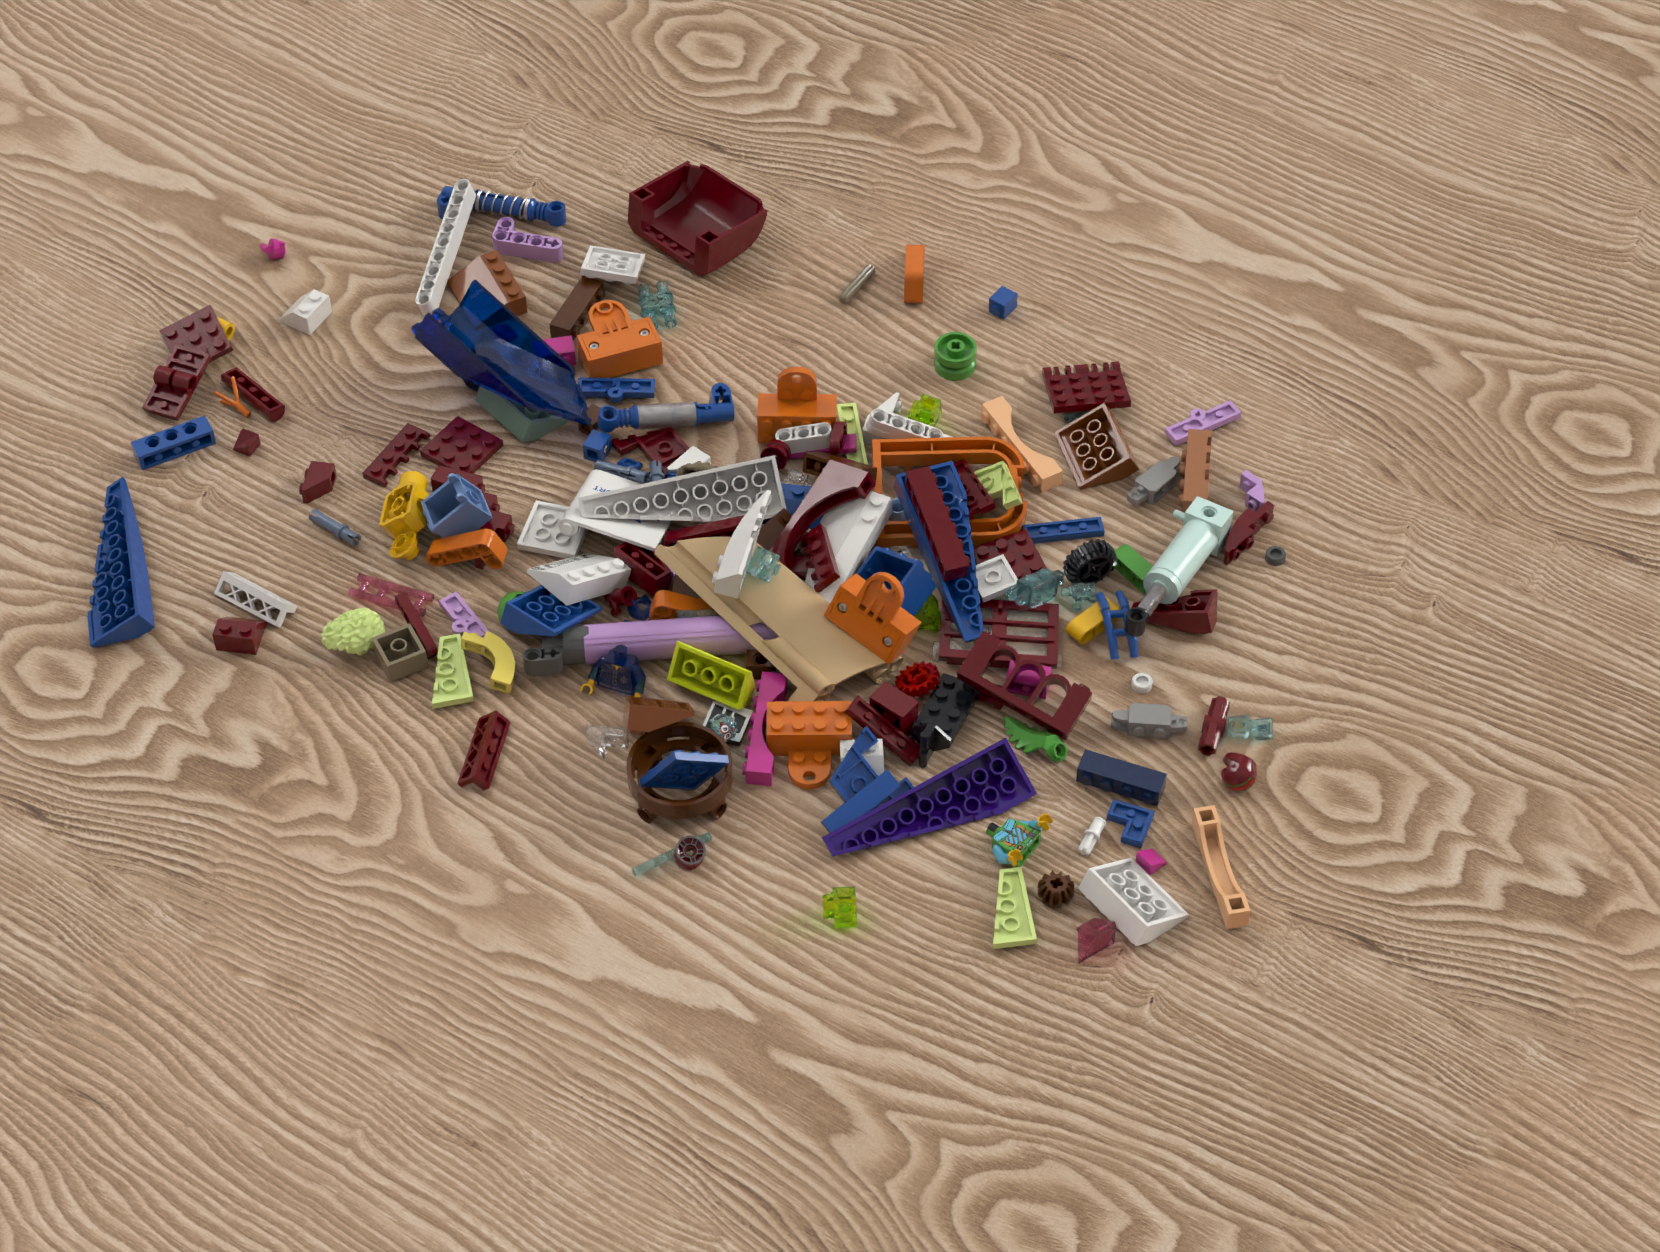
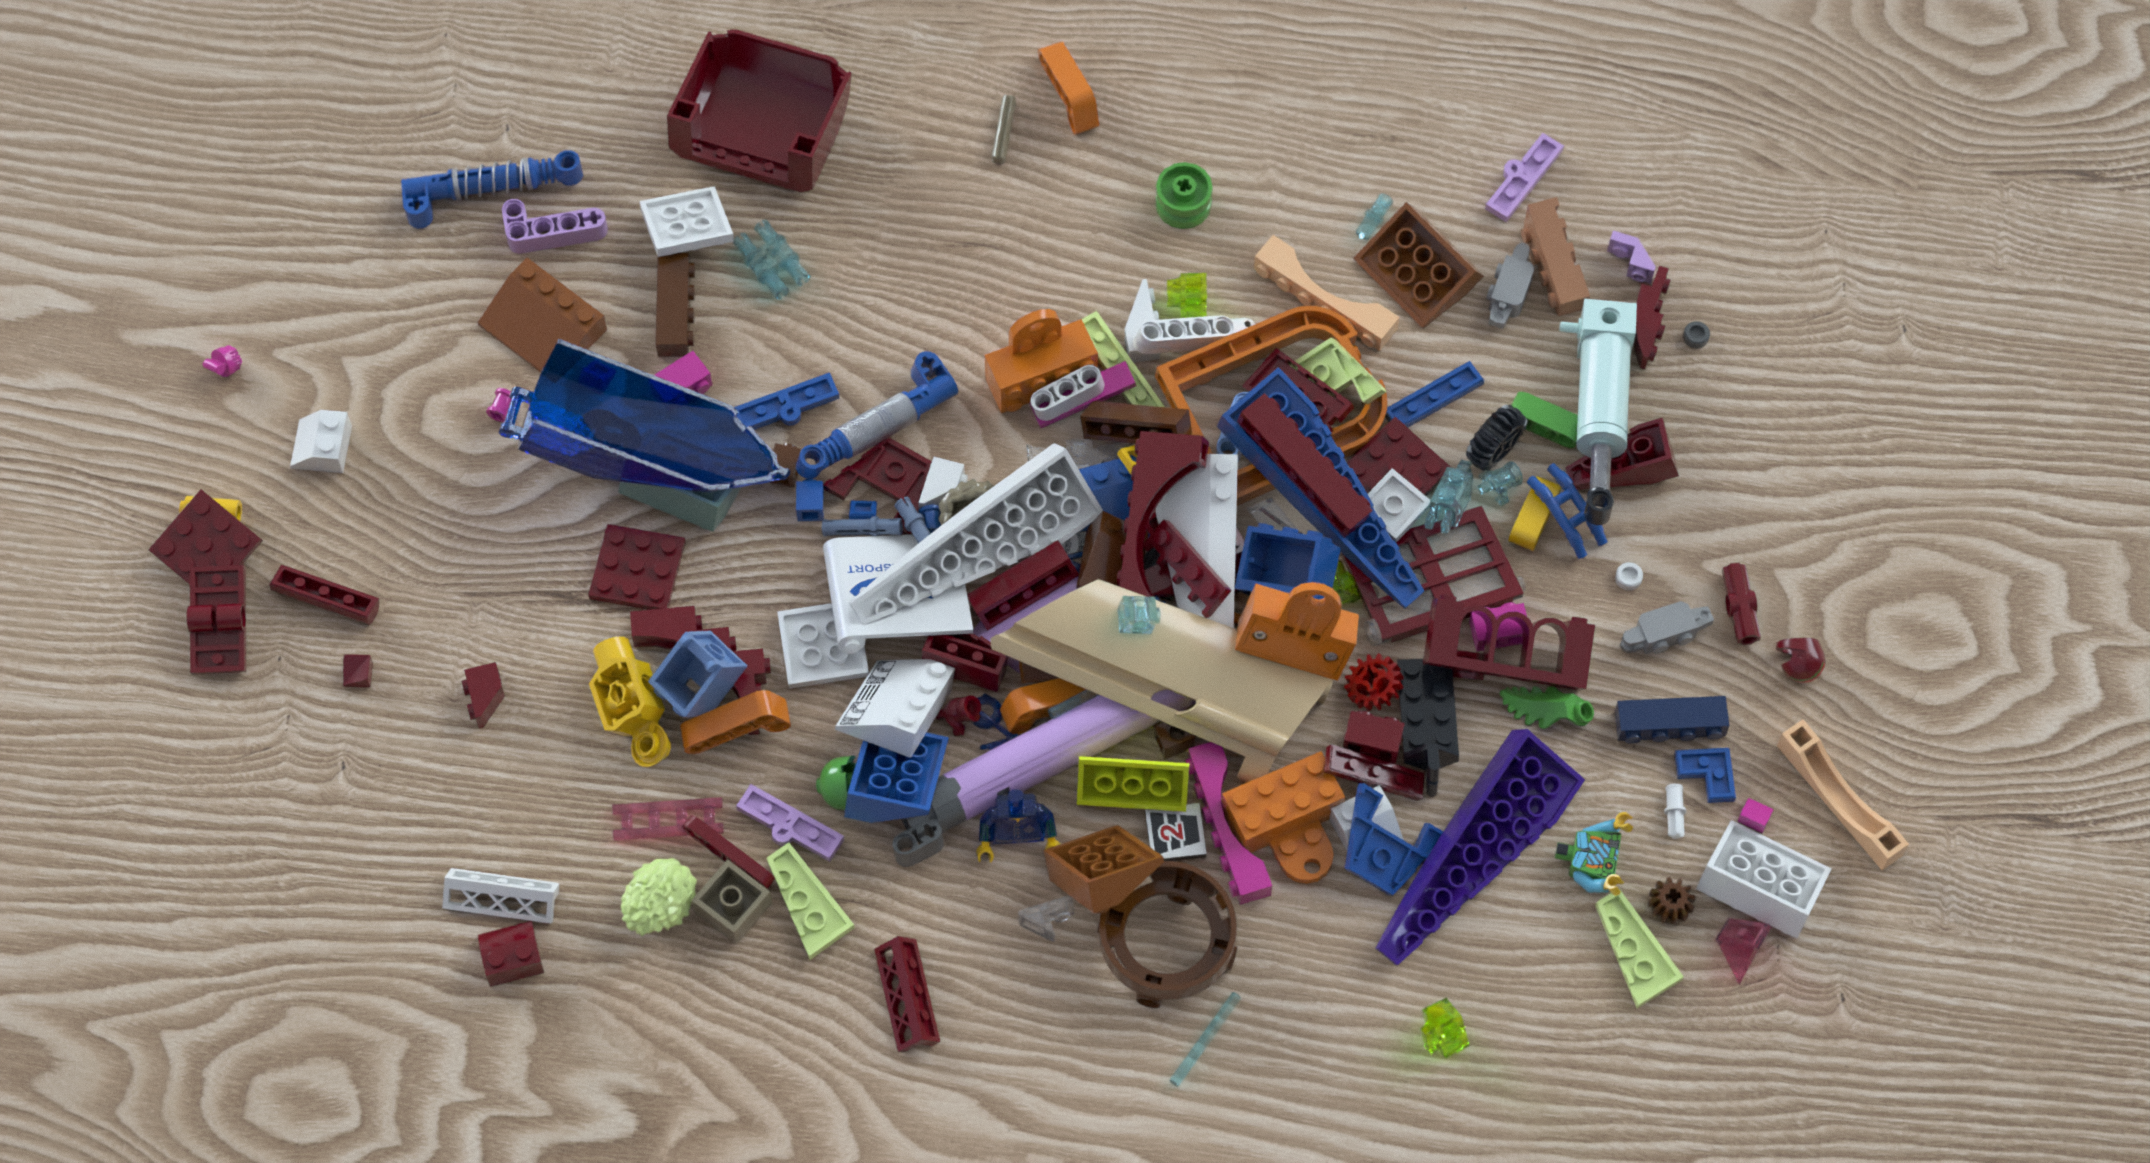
camera: 25 degrees left, 15 degrees up
(122, 585) = (325, 959): blue wedge -> none
(173, 442) = (241, 743): blue brick -> none
(237, 404) = (313, 619): orange plant -> none
(340, 530) = (541, 750): sand blue pin -> none
(394, 453) = (556, 612): dark red hinge -> none
(445, 247) = (464, 285): white beam -> none
(498, 653) = (861, 857): light yellow arch -> none
(617, 342) = (759, 339): orange brick -> none
(684, 770) = (1179, 932): blue plate -> none
(687, 844) = (1238, 1025): dark red wheel -> none
(723, 726) = (1183, 847): clear light blue head -> none
(740, 549) = (1104, 610): white wedge -> none
(777, 448) = (1042, 430): dark red wheel -> none
(838, 437) = (1110, 377): dark red beam -> none
(862, 801) = (1395, 880): blue tile -> none
(1003, 302) = (1199, 91): blue brick -> none
(1086, 389) = (1365, 184): dark red hinge -> none
(1254, 729) = (1782, 588): clear light blue slope -> none

